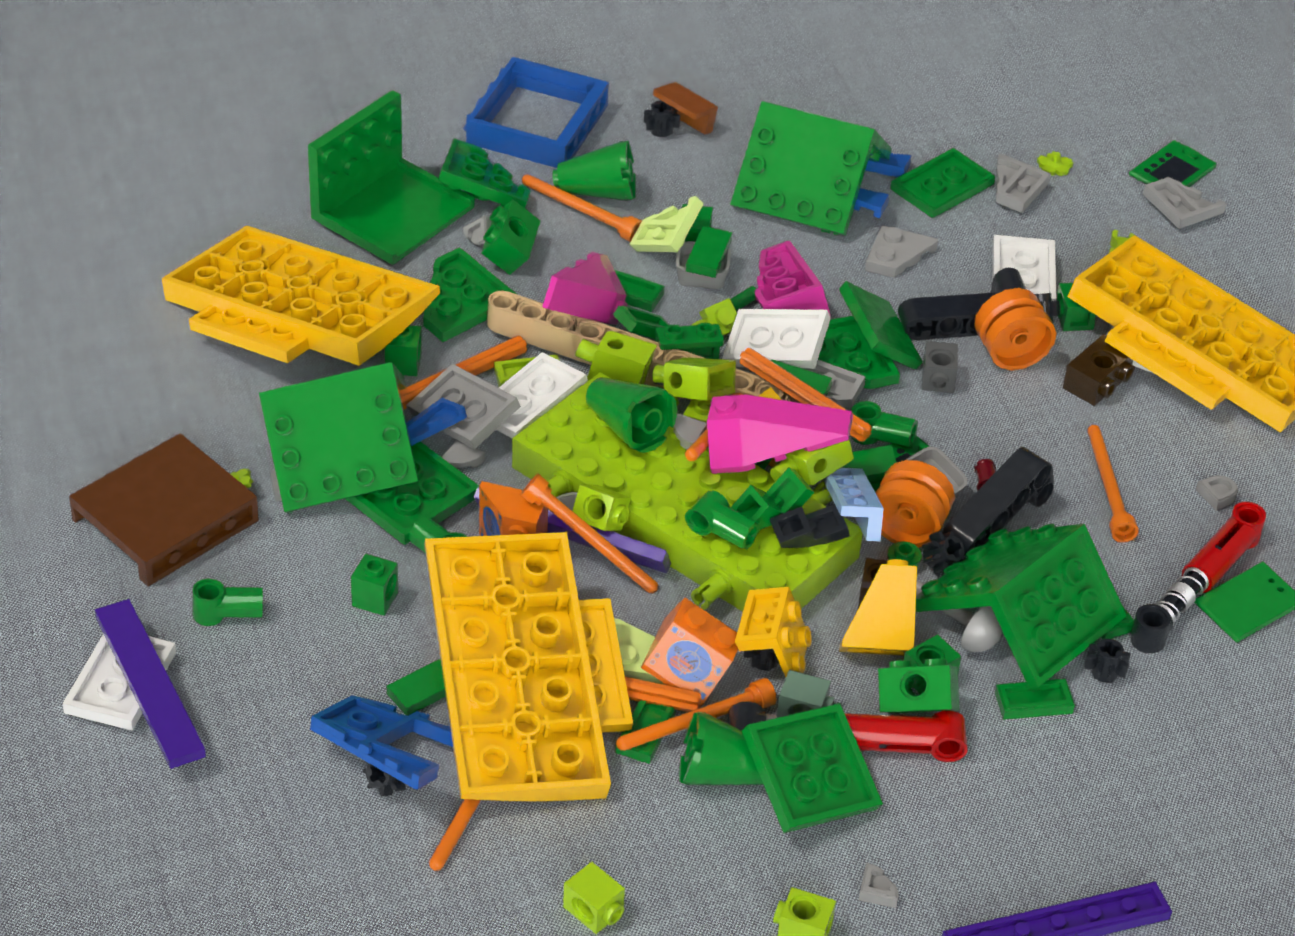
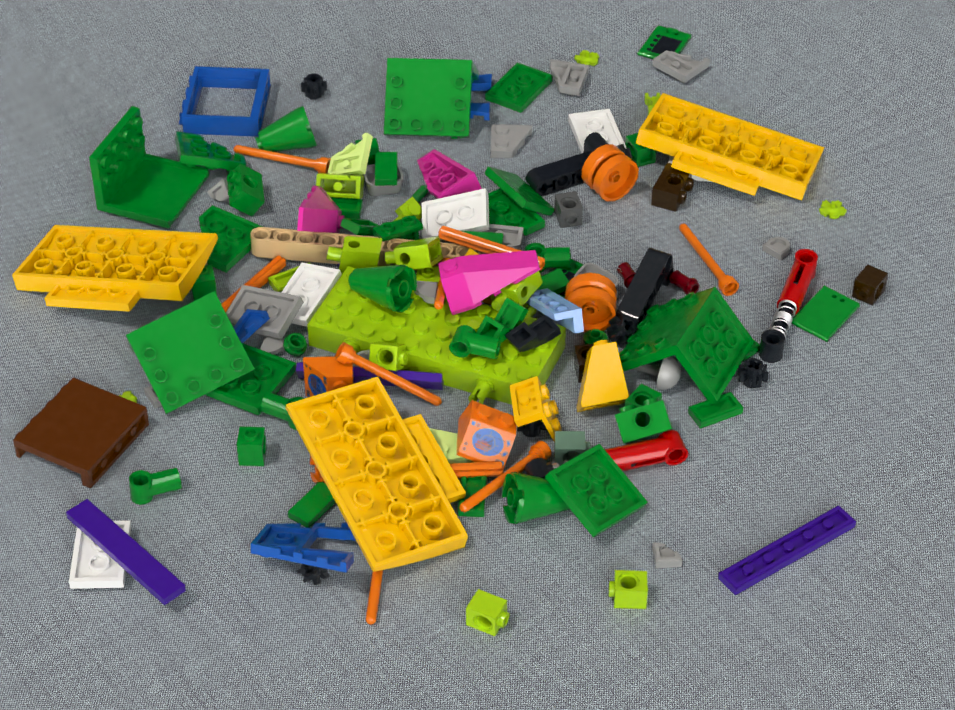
camera: 15 degrees left, 0 degrees up
(496, 456) = (297, 340): none -> green plate
(640, 260) = (341, 185): none -> lime brick
(690, 106) = (335, 75): dark orange panel -> none
(1063, 509) = (685, 283): none -> dark red pin

